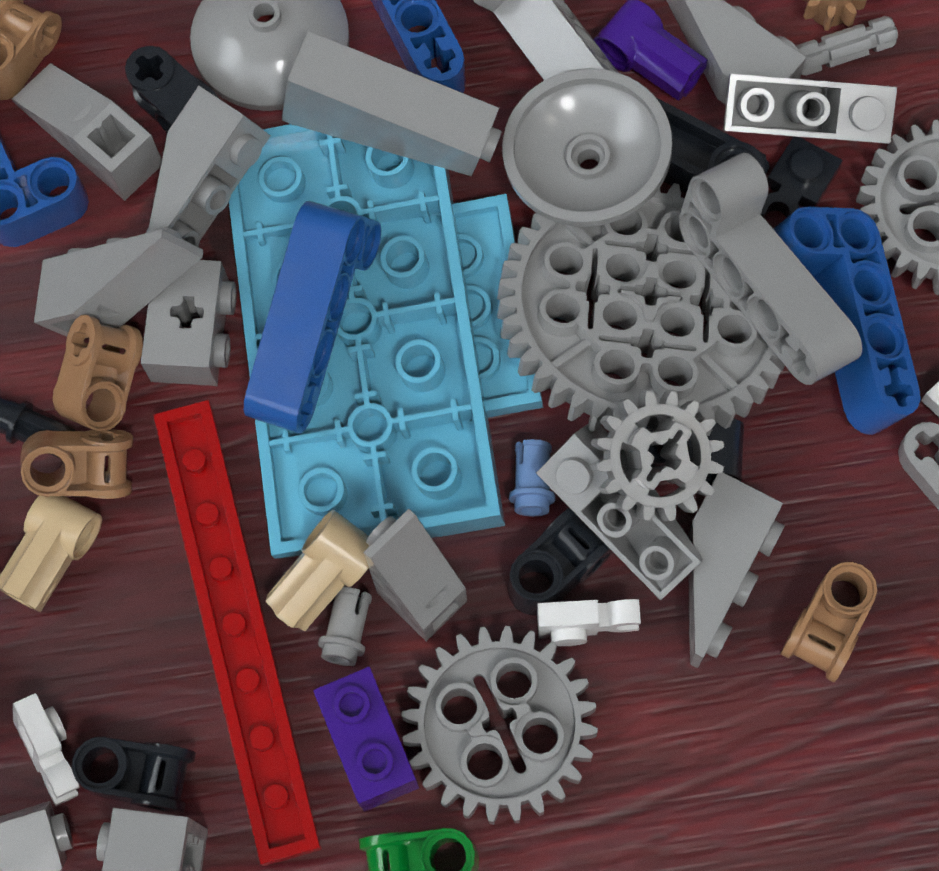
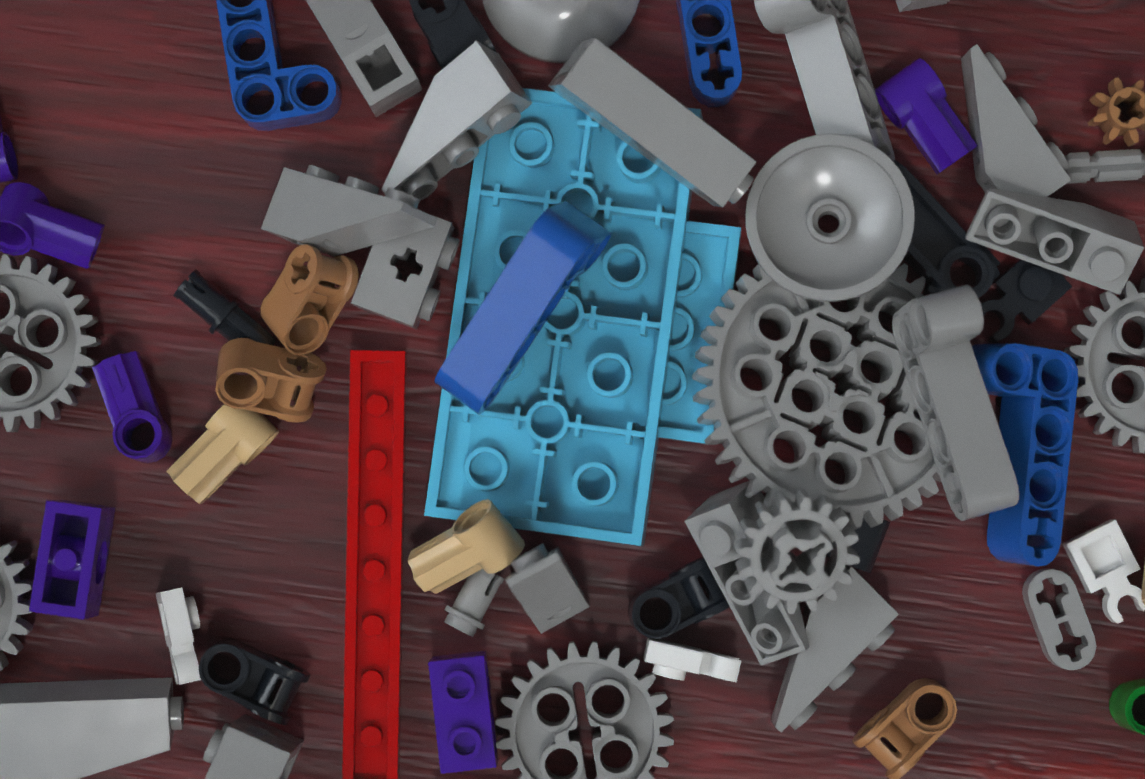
camera: 15 degrees right, 15 degrees up
(531, 493) = (683, 501): medium blue pin -> none

